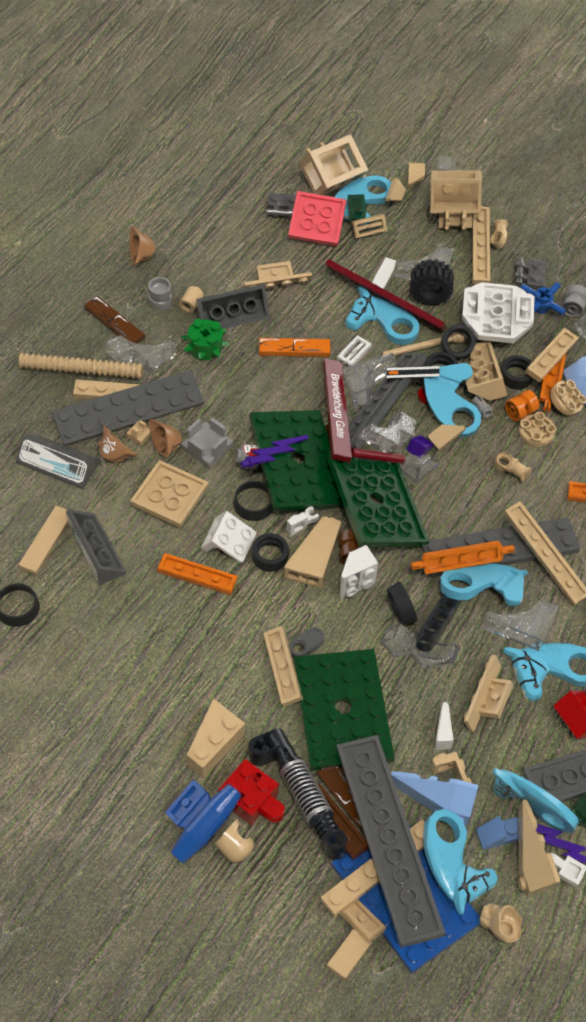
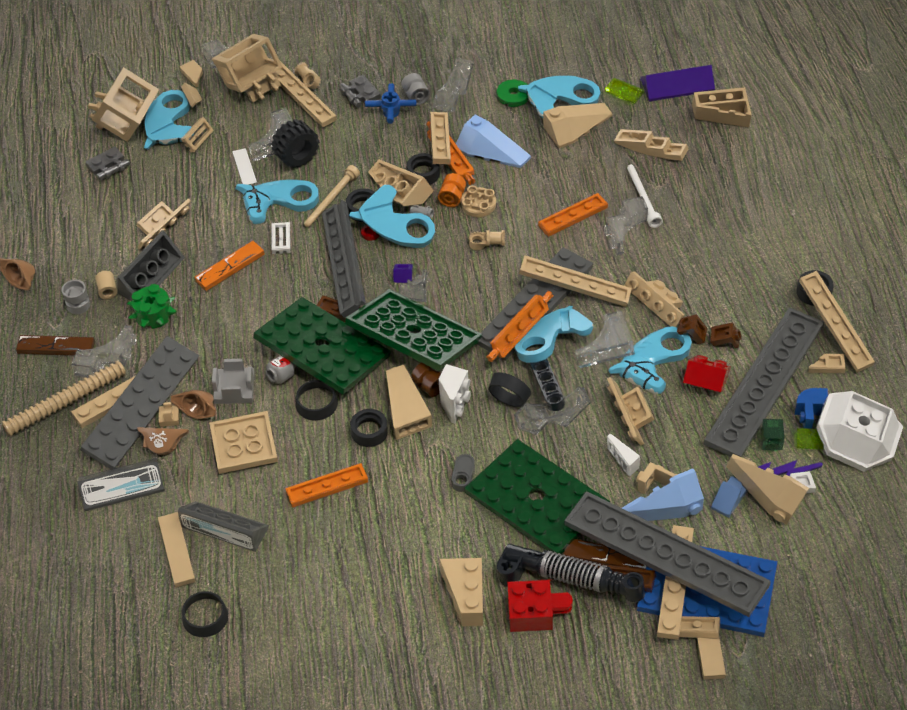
camera: 35 degrees left, 5 degrees down
(200, 816) = (514, 648): blue plate -> none
(229, 536) = (323, 437): white bracket -> none
(233, 845) = (559, 649): tan helmet -> none
(264, 455) = (298, 354): dark purple piece -> none
(283, 666) = (463, 500): tan plate -> none
(299, 522) = (369, 390): white plate -> none
(317, 218) = (149, 155): coral plate -> none
(337, 411) = (318, 286): tile -> none
(356, 207) = (175, 125): clear green brick -> none
(365, 375) = (311, 249): clear arch -> none
(377, 455) = (383, 298): dark red piece -> none
(384, 294) = (260, 178): dark red tile -> none
(399, 431) = (377, 275): clear arch -> none
(413, 372) = (349, 218): sticker -> none
(445, 434) = (415, 250): tan tile -> none
(457, 880) = (738, 545): medium azure animal -> none
(458, 328) = (364, 164): black tyre -> none
(498, 311) = (368, 133): white piece -> none
(502, 921) = (791, 551): tan hair -> none
(545, 805) = (743, 445): medium azure animal -> none
(567, 397) = (479, 162): tan tile -> none

